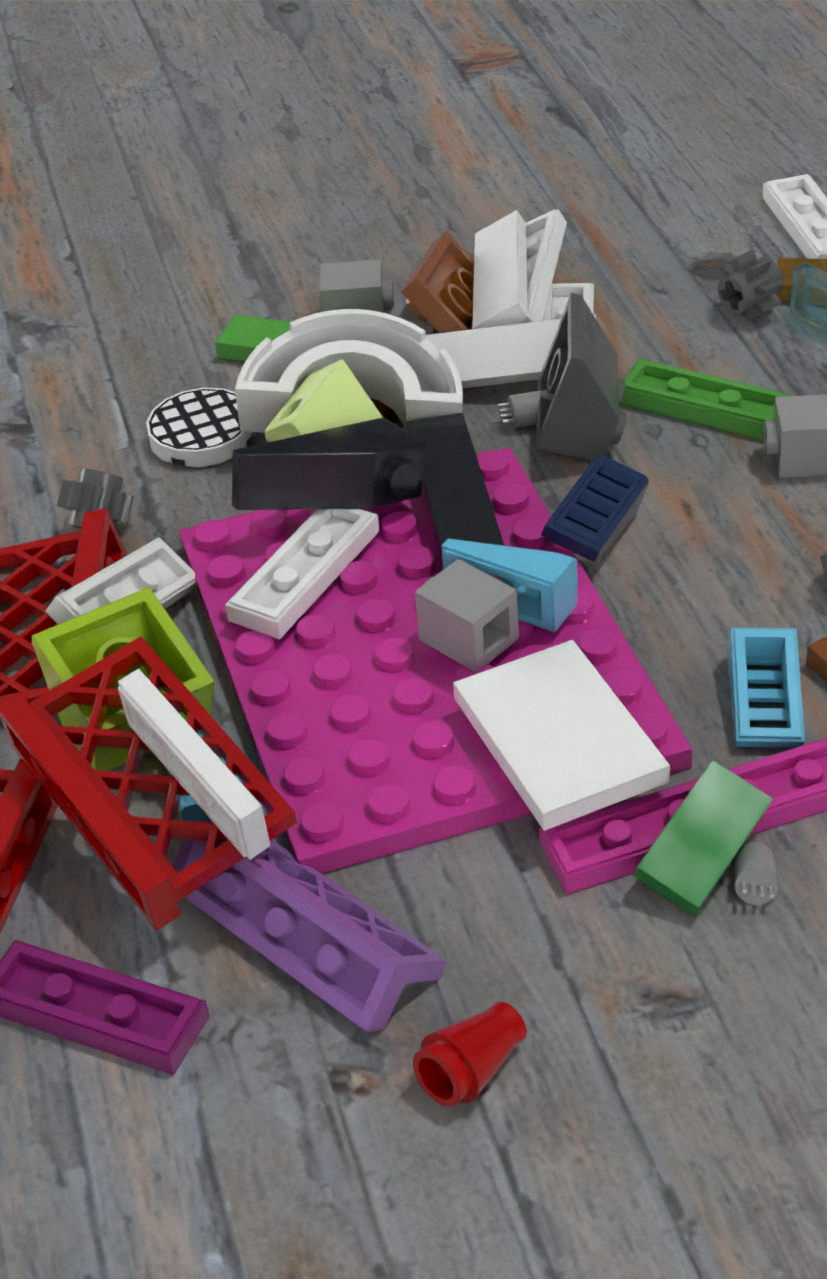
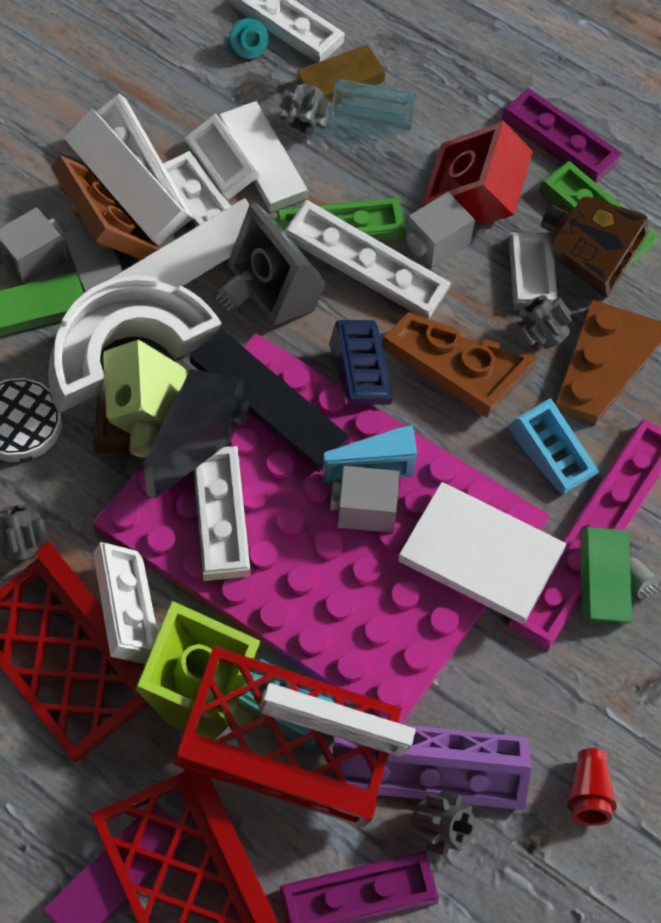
camera: 45 degrees left, 20 degrees up
(264, 961) = (443, 822): none -> dark grey gear
(624, 296) = (222, 156): none -> white tile
(672, 315) = (278, 179): none -> white tile
(700, 435) = (367, 260): none -> white tile
(719, 567) = (463, 367): none -> dark orange wing
(749, 217) = (247, 38): none -> teal plate

